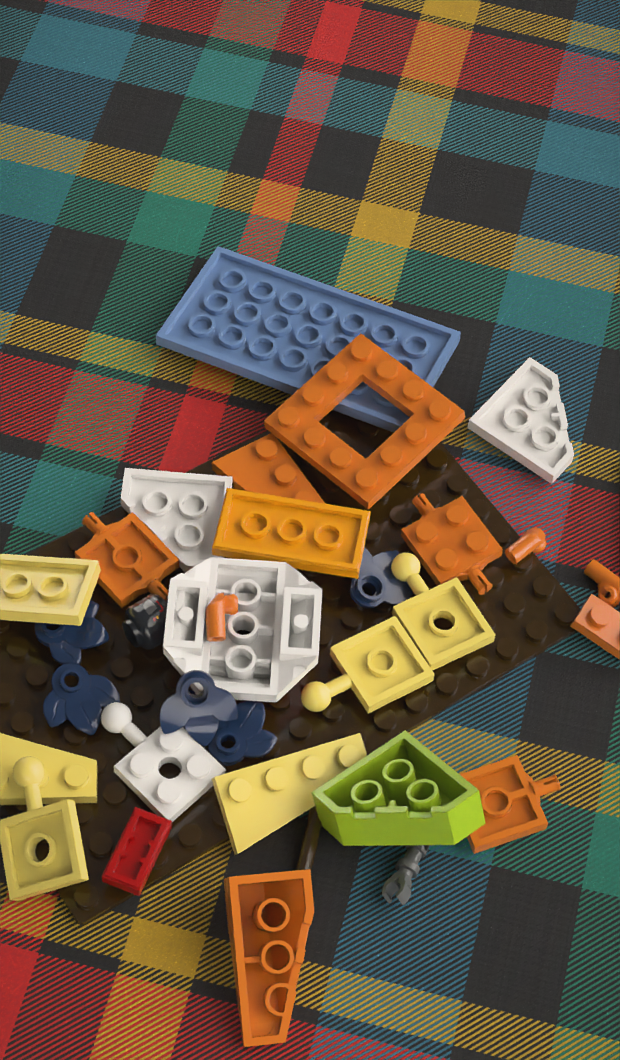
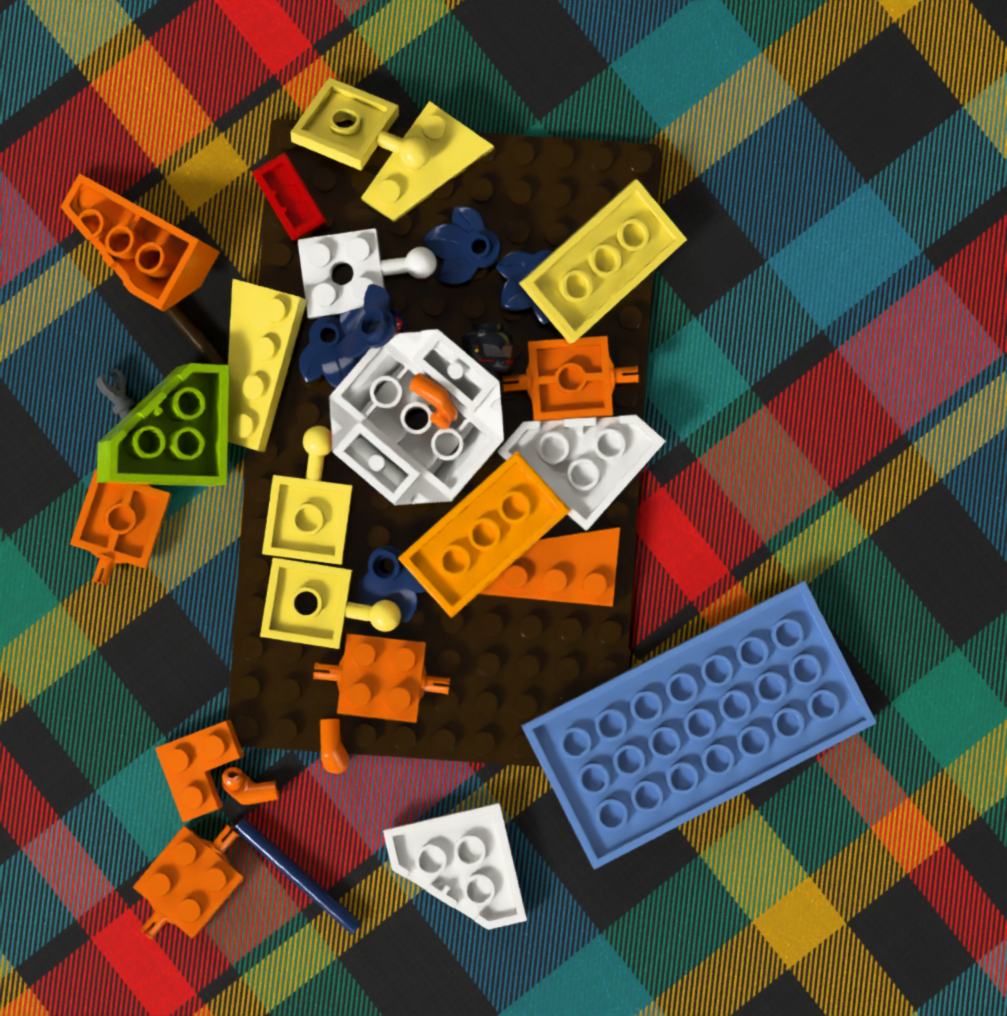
camera: 130 degrees right, 30 degrees up
(372, 477) = (594, 627): orange plate -> none

